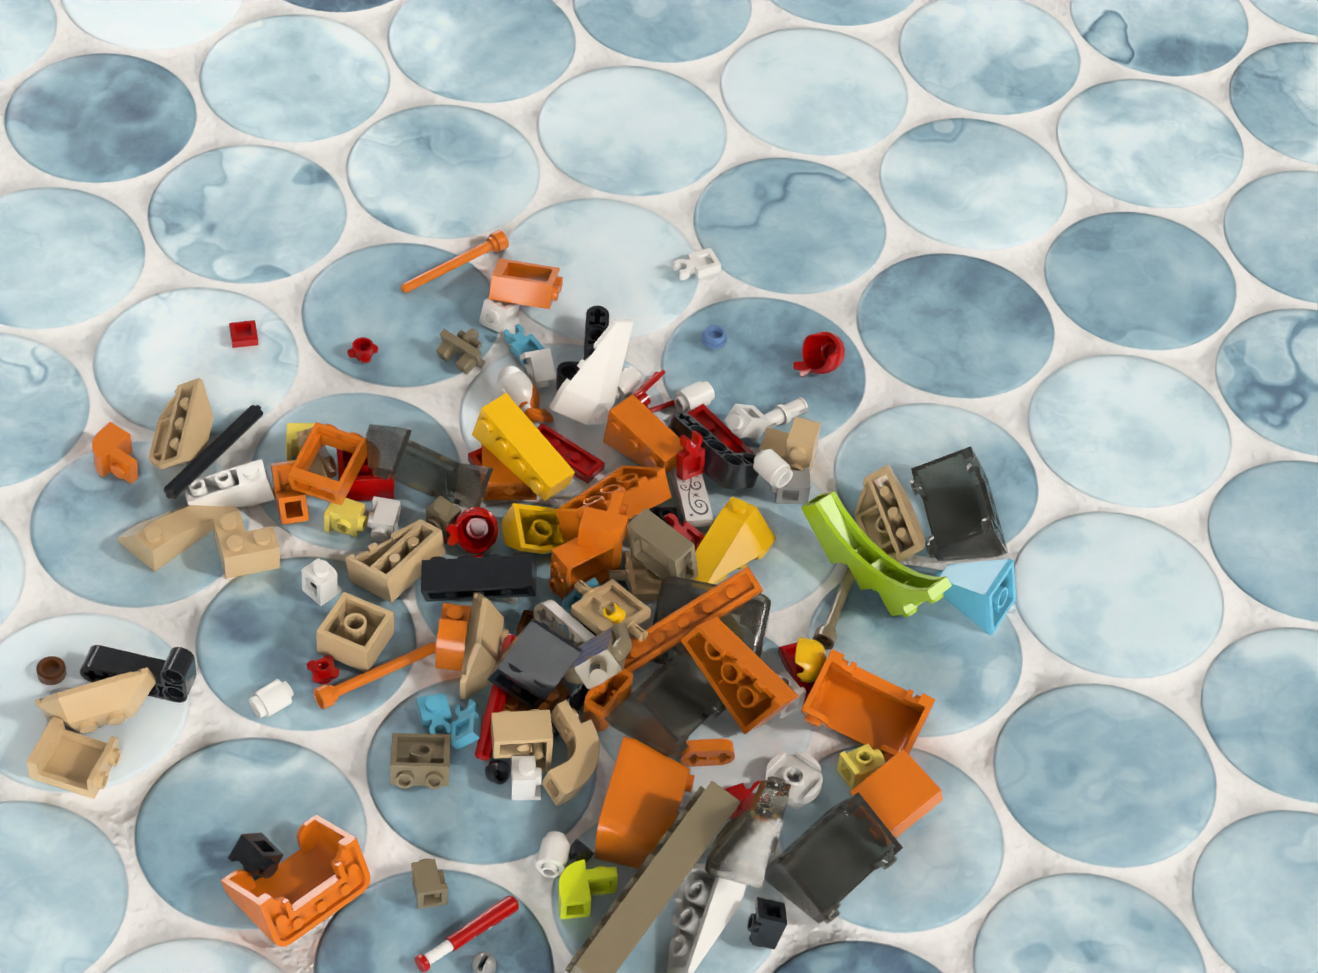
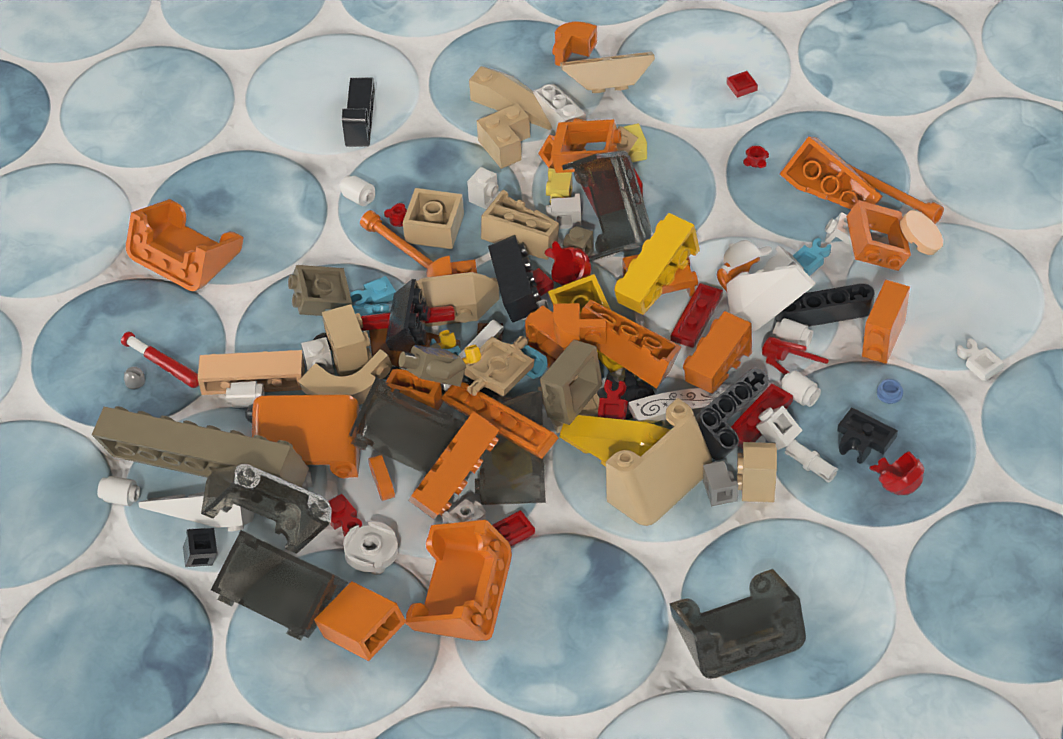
camera: 85 degrees right, 0 degrees up
(51, 670) = (353, 69): reddish brown tile -> none
(72, 760) = (271, 98): tan panel -> none
(99, 702) = (315, 92): tan wedge -> none
(213, 452) = (593, 91): black axle -> none
(256, 854) = (199, 214): black brick -> none
(416, 303) = (826, 175): none -> orange wedge
(428, 884) = (200, 321): dark tan brick -> none
(465, 346) = (783, 217): dark tan hips -> none
(521, 843) = (274, 369): none -> light nougat brick
(529, 253) = (922, 231): none -> light nougat tile
(579, 884) = (214, 412): neon yellow brick -> none
(645, 306) = (885, 321): none -> orange brick
(692, 458) = (698, 387): red plate -> none
(763, 367) = (864, 434): none -> black plate
(772, 468) = (715, 450): white brick -> none
(797, 546) = (662, 476): none -> tan windscreen
(810, 656) = (499, 515): yellow hair -> none
(826, 633) = (547, 542): dark tan piece -> none
(859, 764) = (397, 589): light yellow brick -> none
(871, 567) = (630, 560): lime arch -> none
(888, 515) = (705, 567): tan wedge -> none
(981, 590) = (633, 657): medium azure slope -> none

